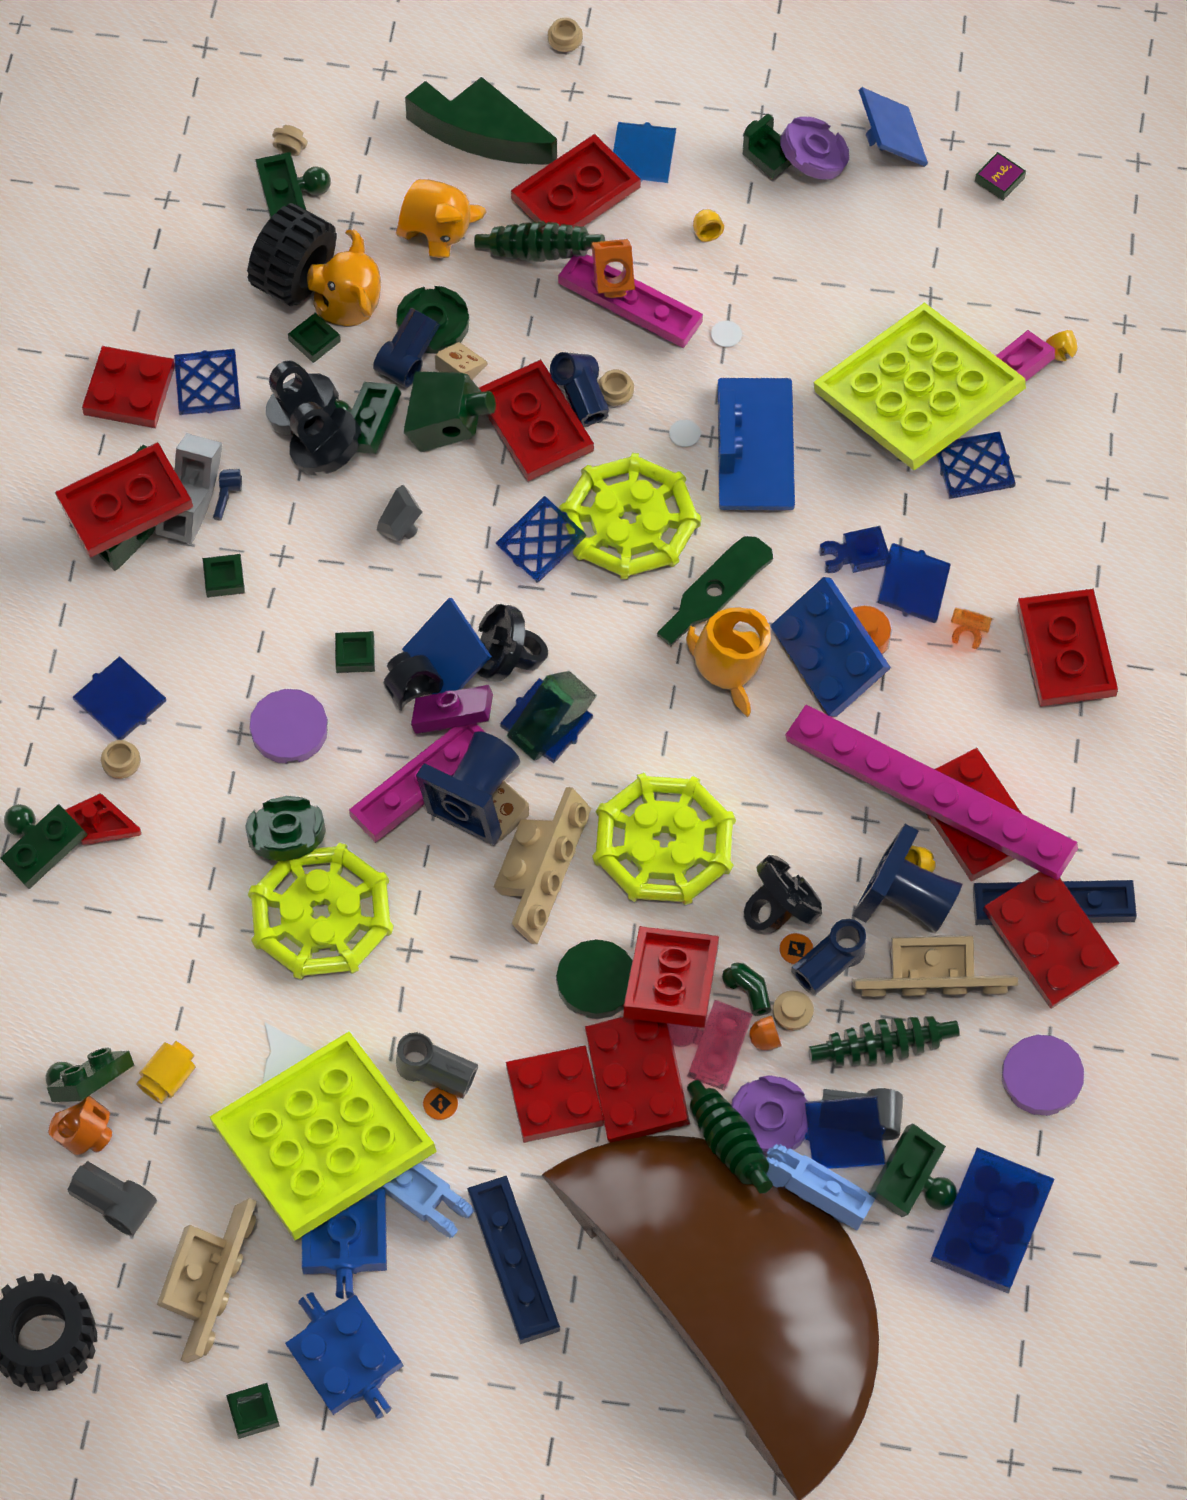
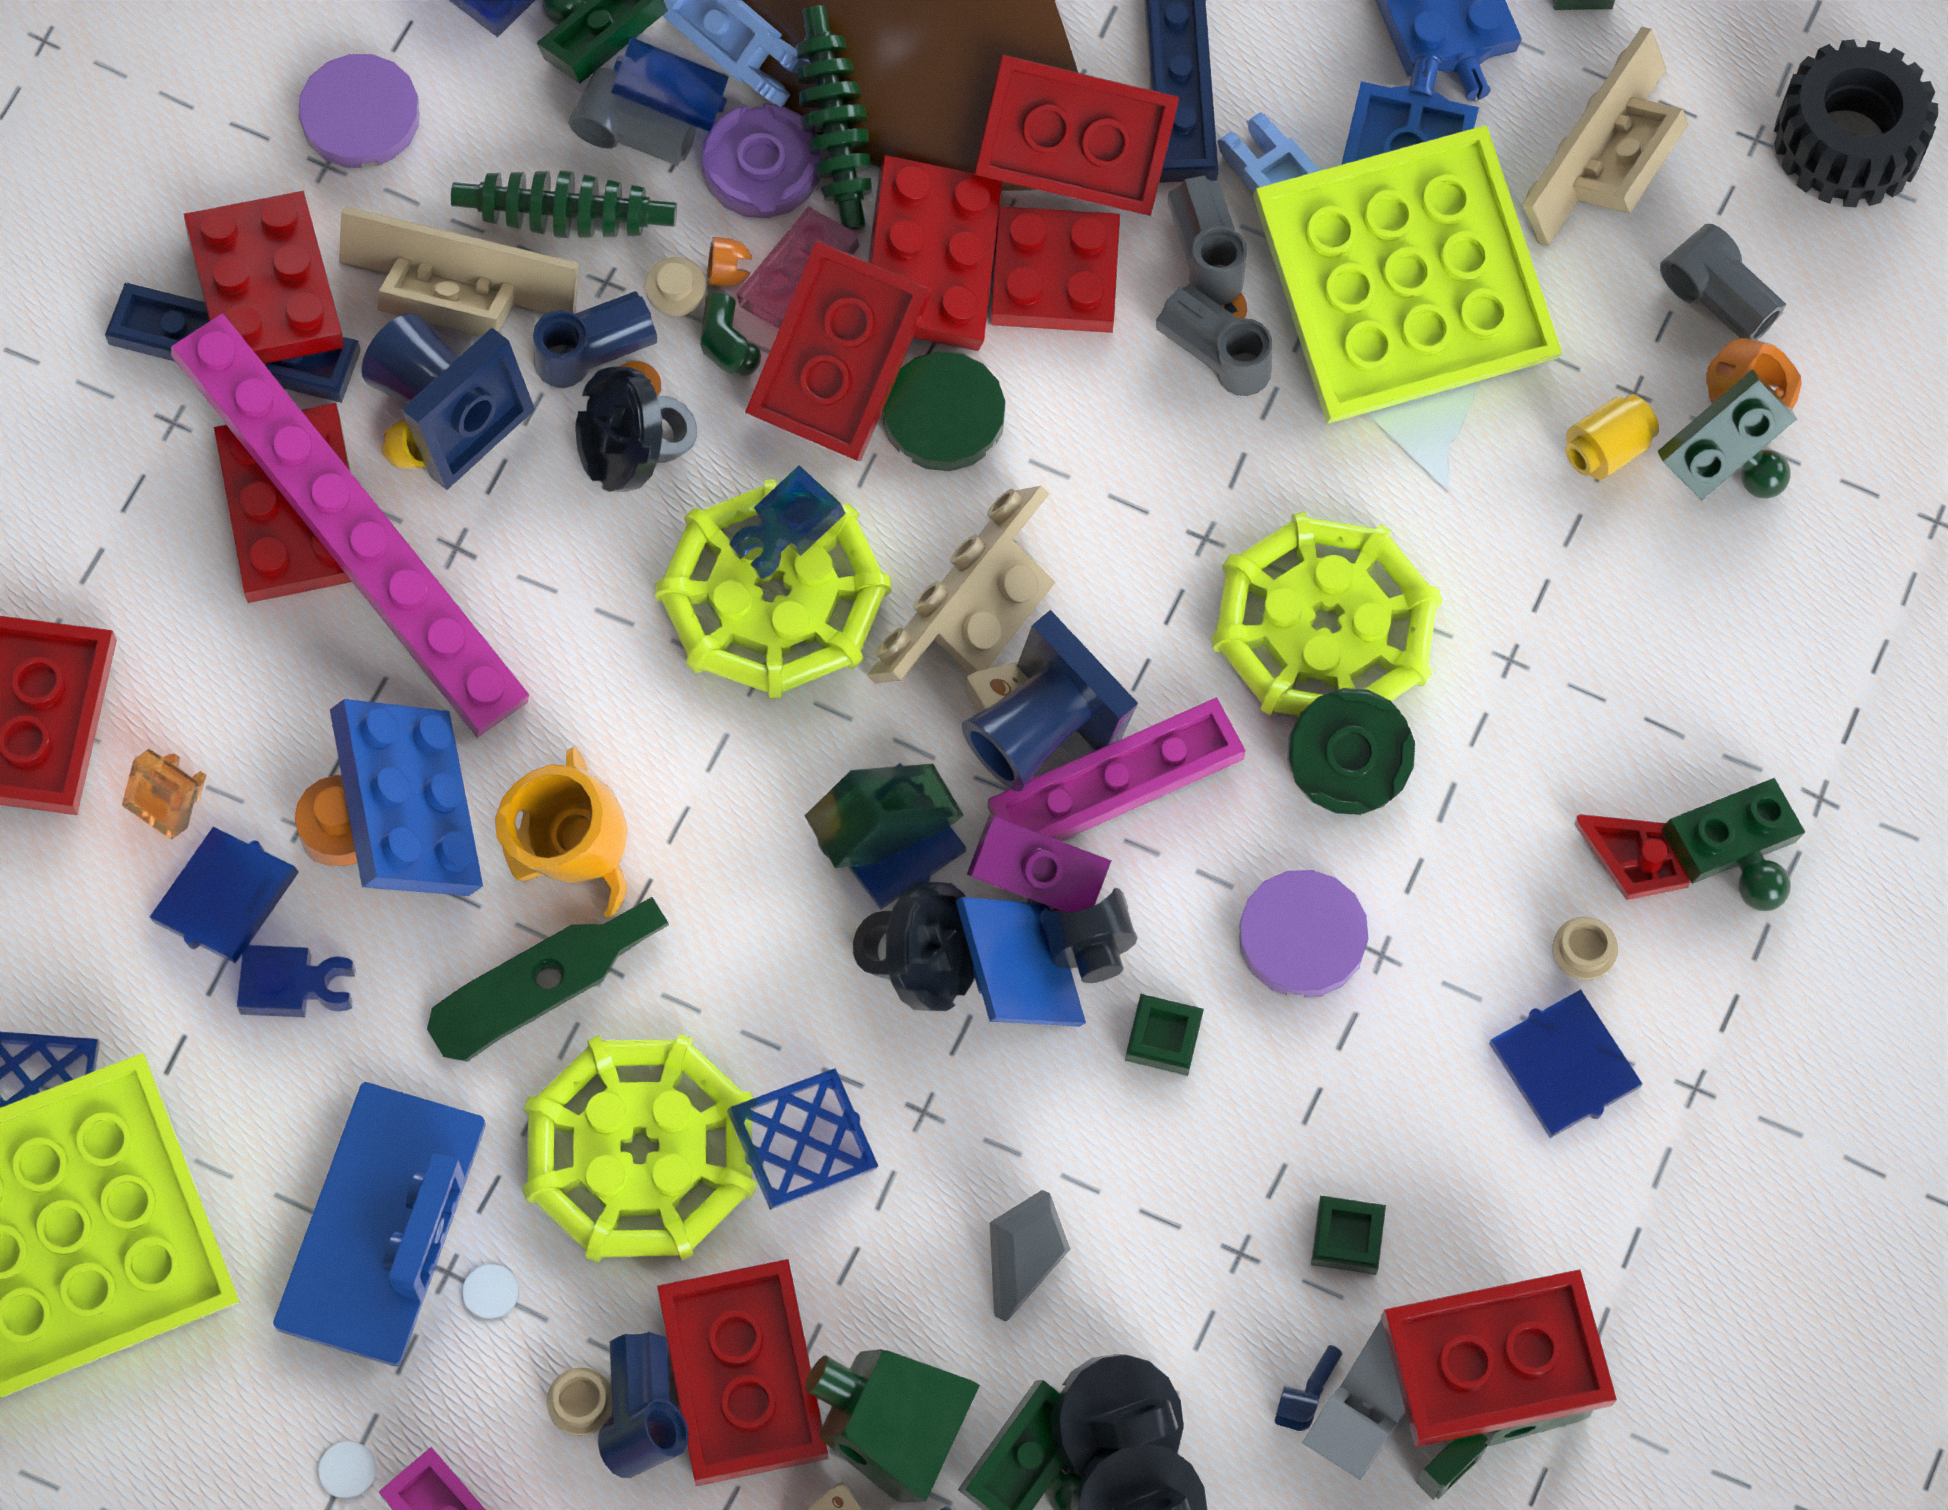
camera: 165 degrees left, 5 degrees up
(461, 1133) = (1209, 239): none -> dark grey piece
(565, 1165) = (1075, 135): none -> red plate
(664, 860) = (791, 515): none -> plate

